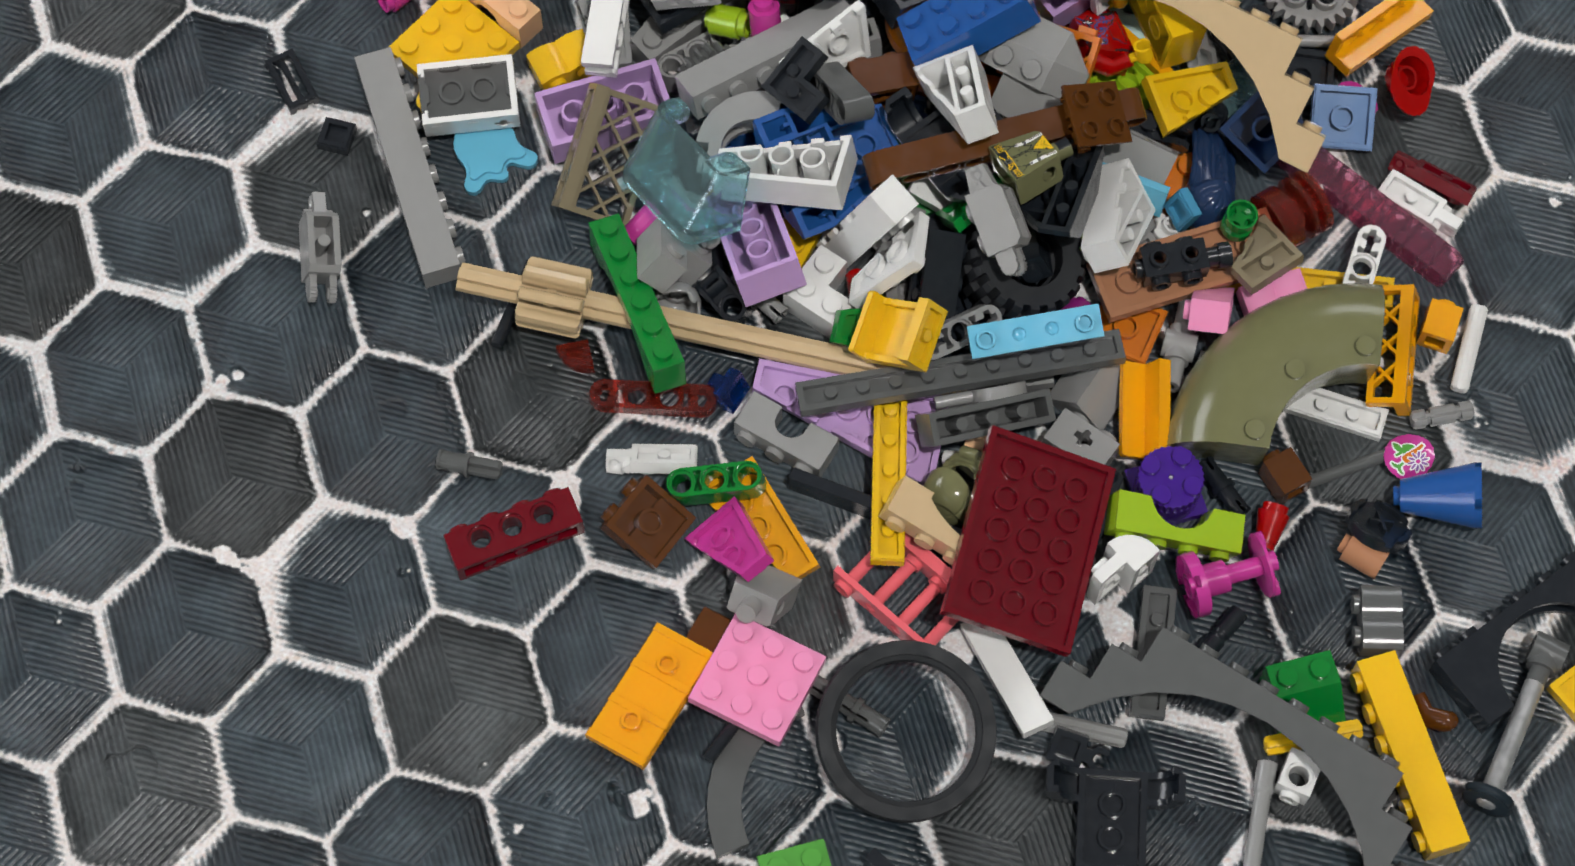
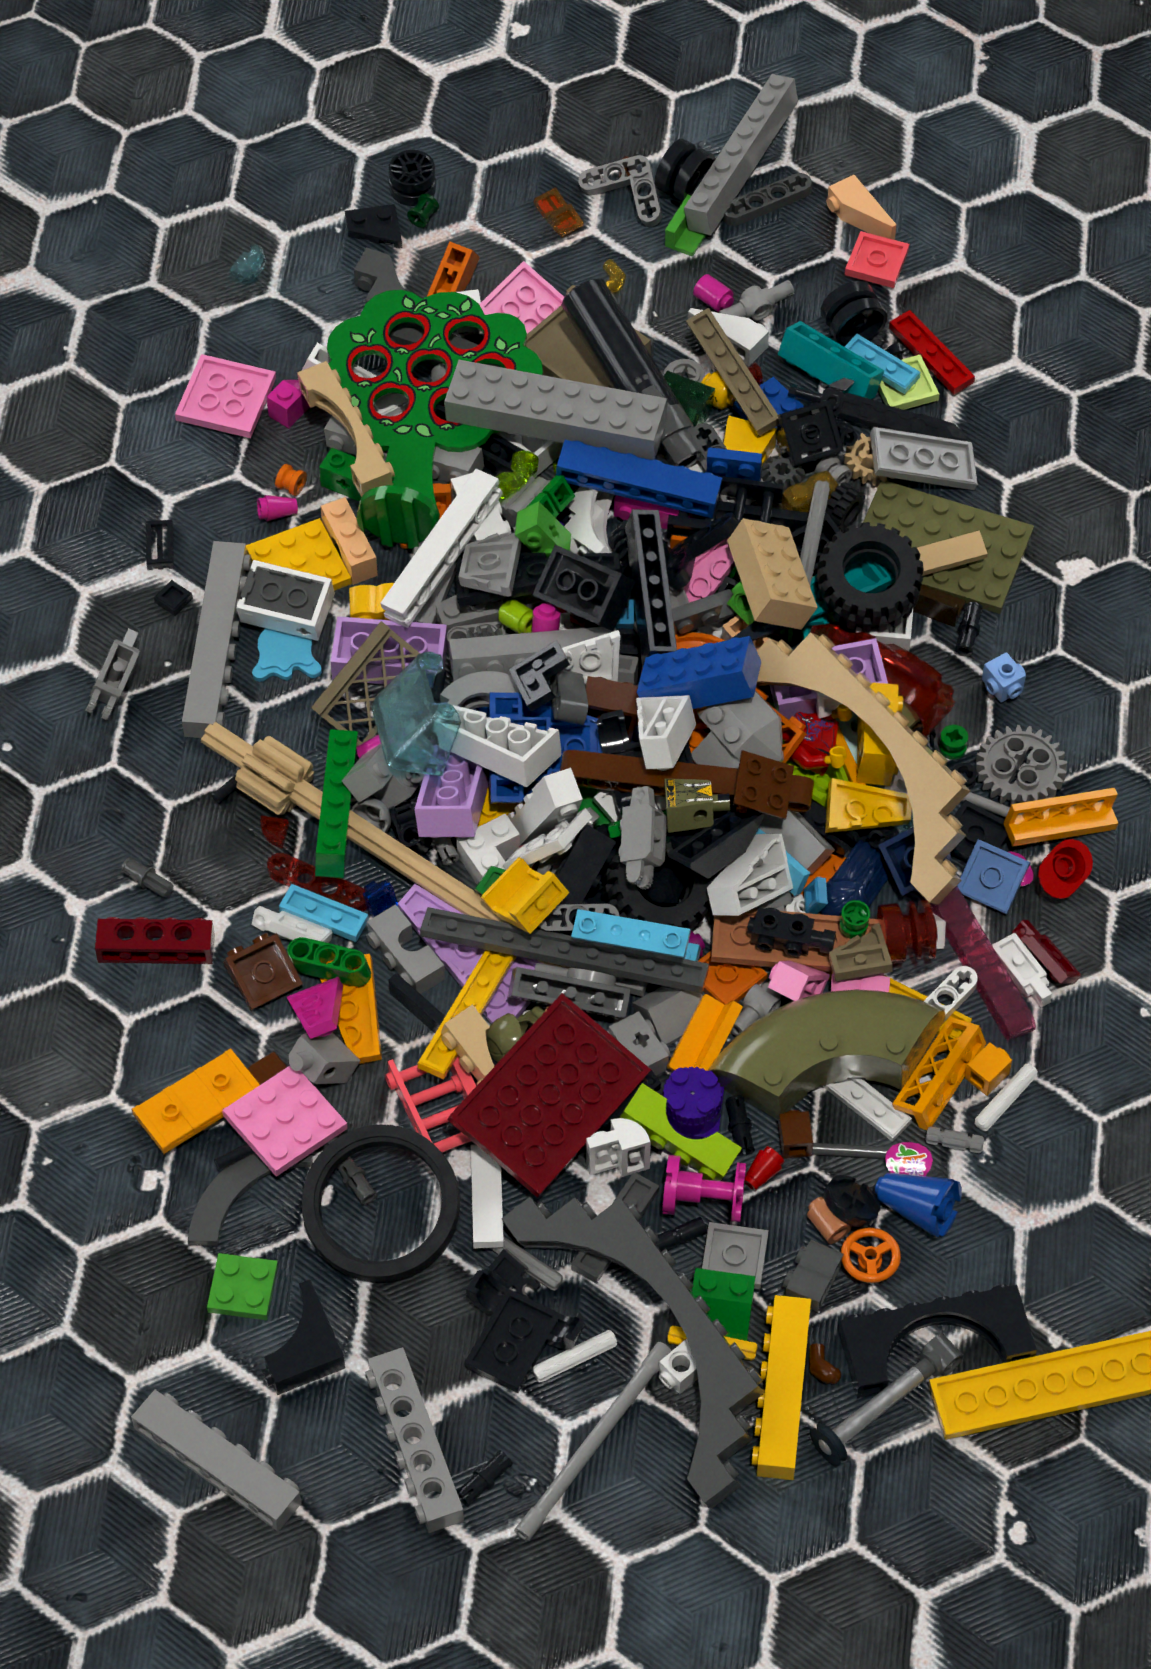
camera: 25 degrees right, 10 degrees down
(678, 427) = (325, 912): none -> medium azure plate
(1177, 816) = (574, 1356): none -> white axle
(1287, 629) = (736, 1250): none -> light grey plate
(1422, 587) = (870, 1267): none -> orange piece

